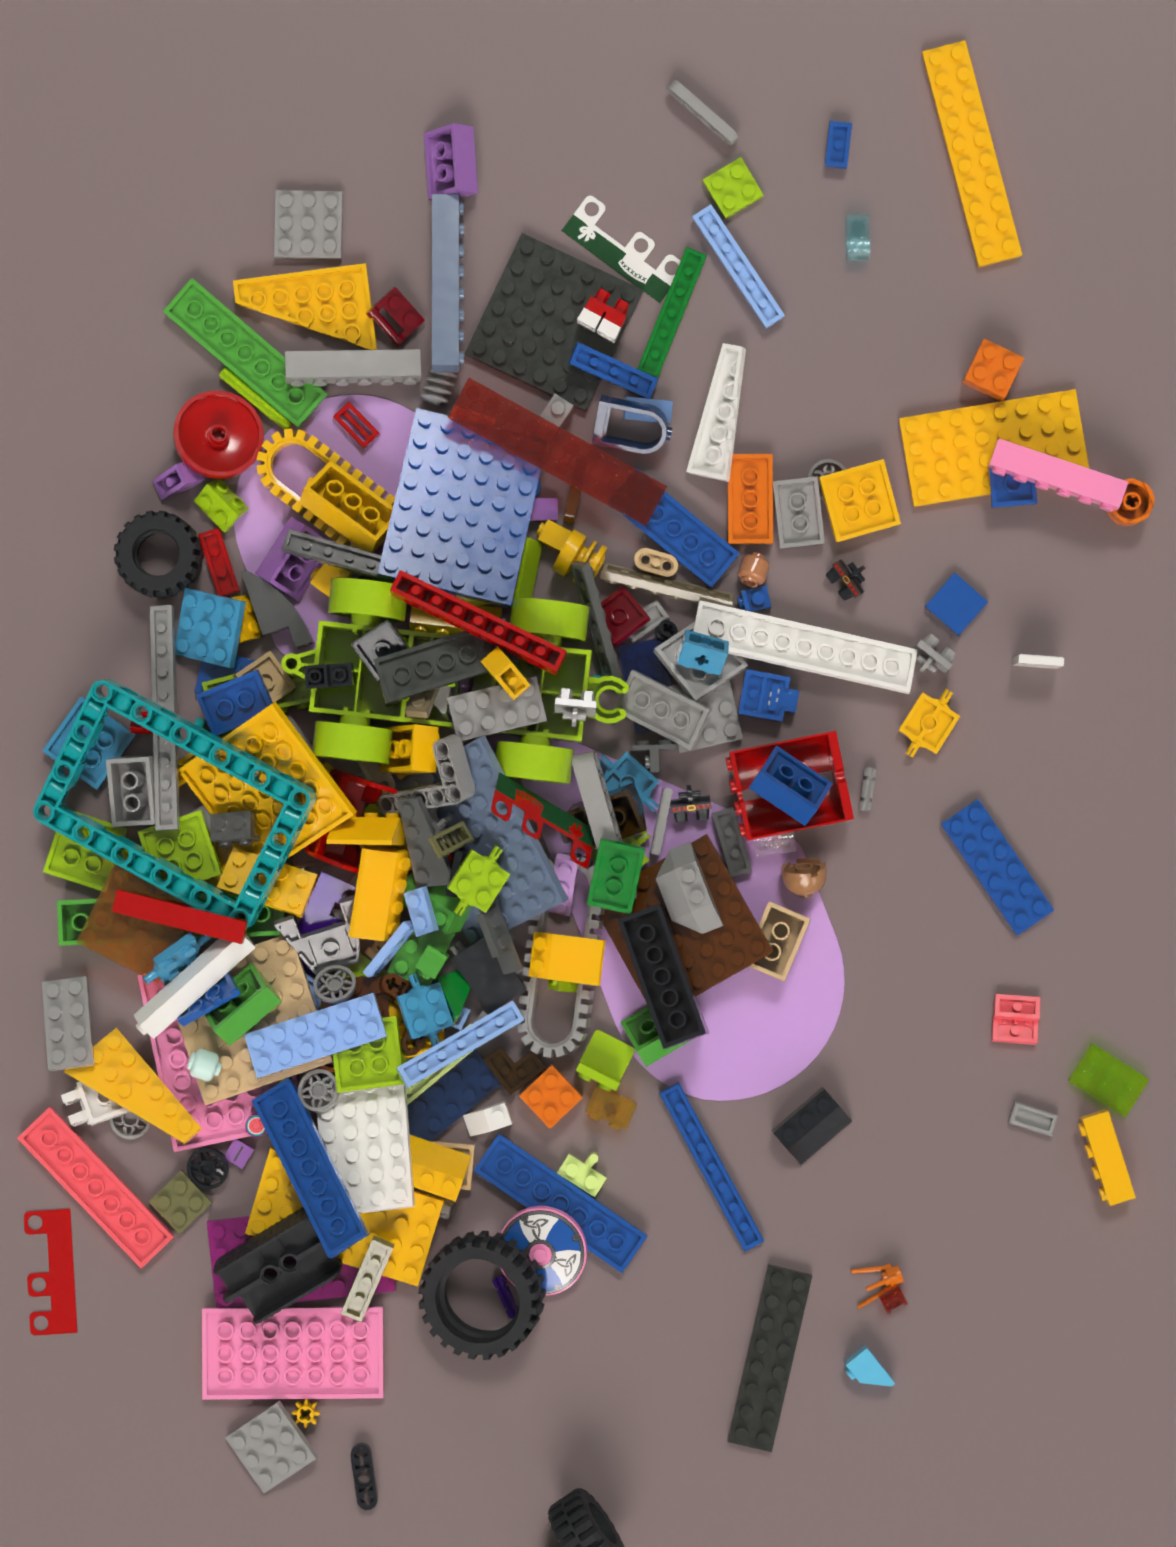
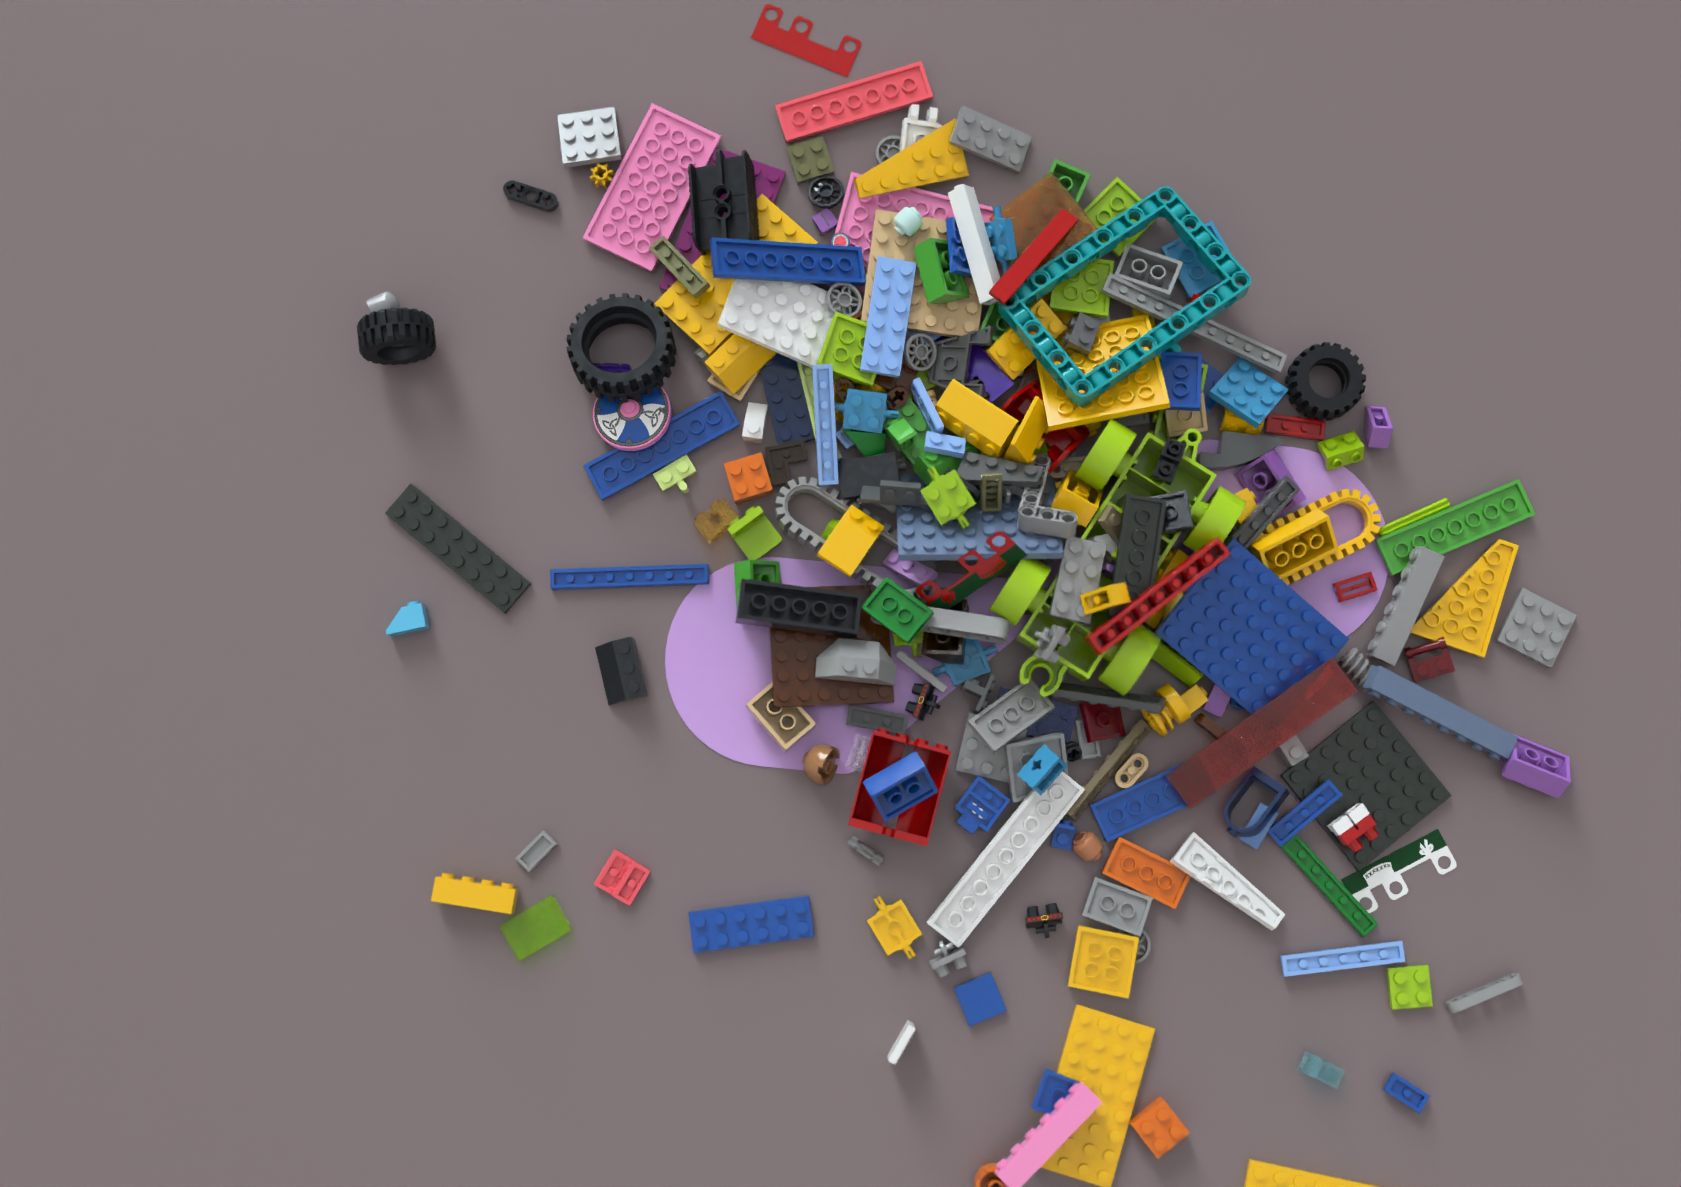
camera: 115 degrees right, 5 degrees down
(218, 434) = (1399, 473): red dish -> none
(890, 1277) = (471, 674): orange plant -> none
(893, 1300) = (452, 666): clear red bush -> none

